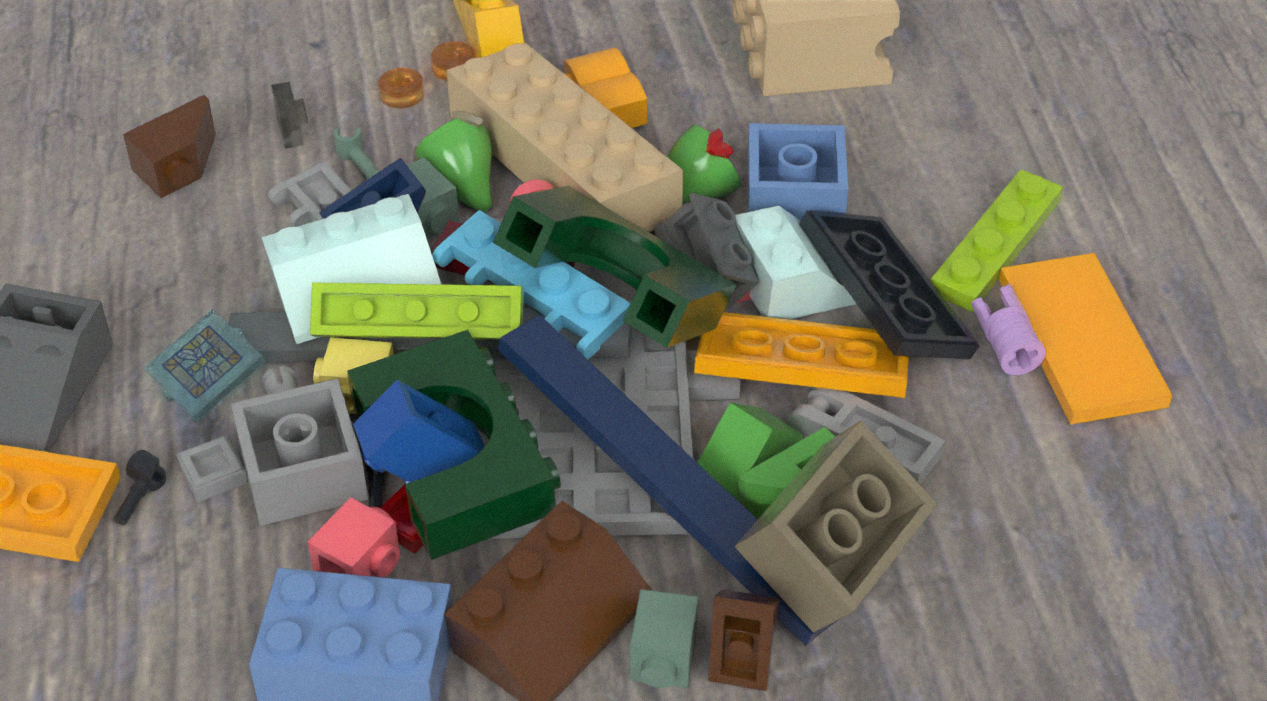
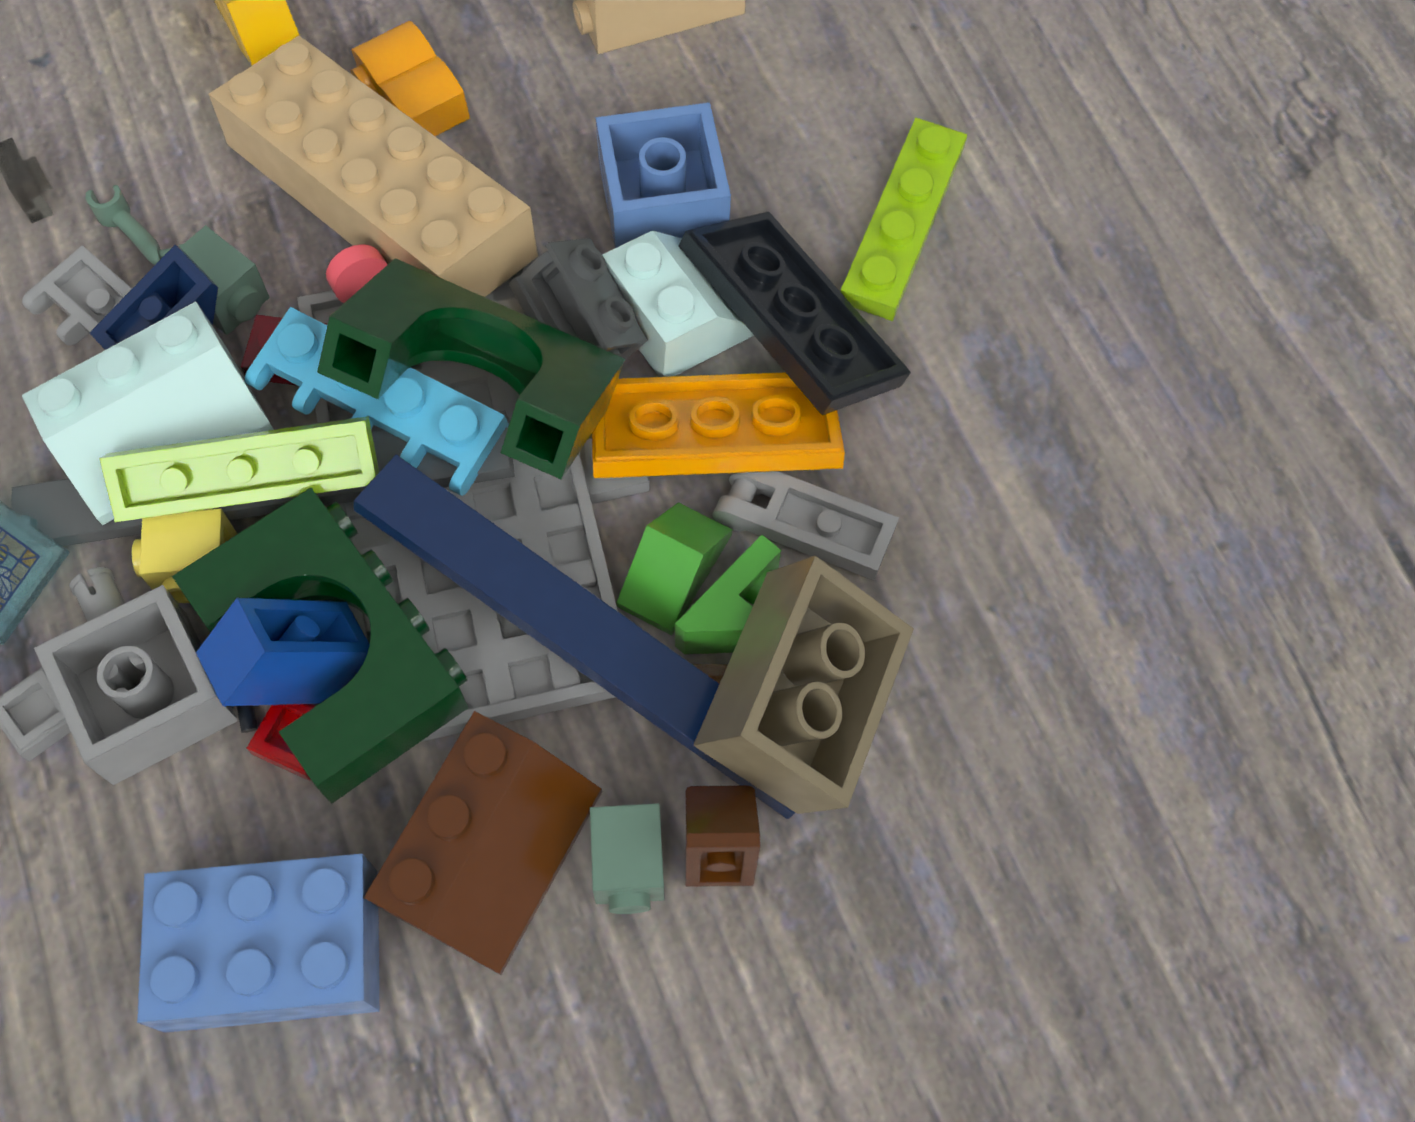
camera: 15 degrees left, 20 degrees up
(356, 542) = (237, 801): coral brick -> none
(401, 88) = (158, 112): clear orange tile -> none
(449, 56) = (214, 61): clear orange tile -> none
(463, 156) = (254, 216): bright green hat -> none
(704, 163) = (547, 177): bright green hat -> none
(1010, 333) = (943, 349): lavender hinge -> none
(1088, 338) = (1023, 339): light orange tile -> none

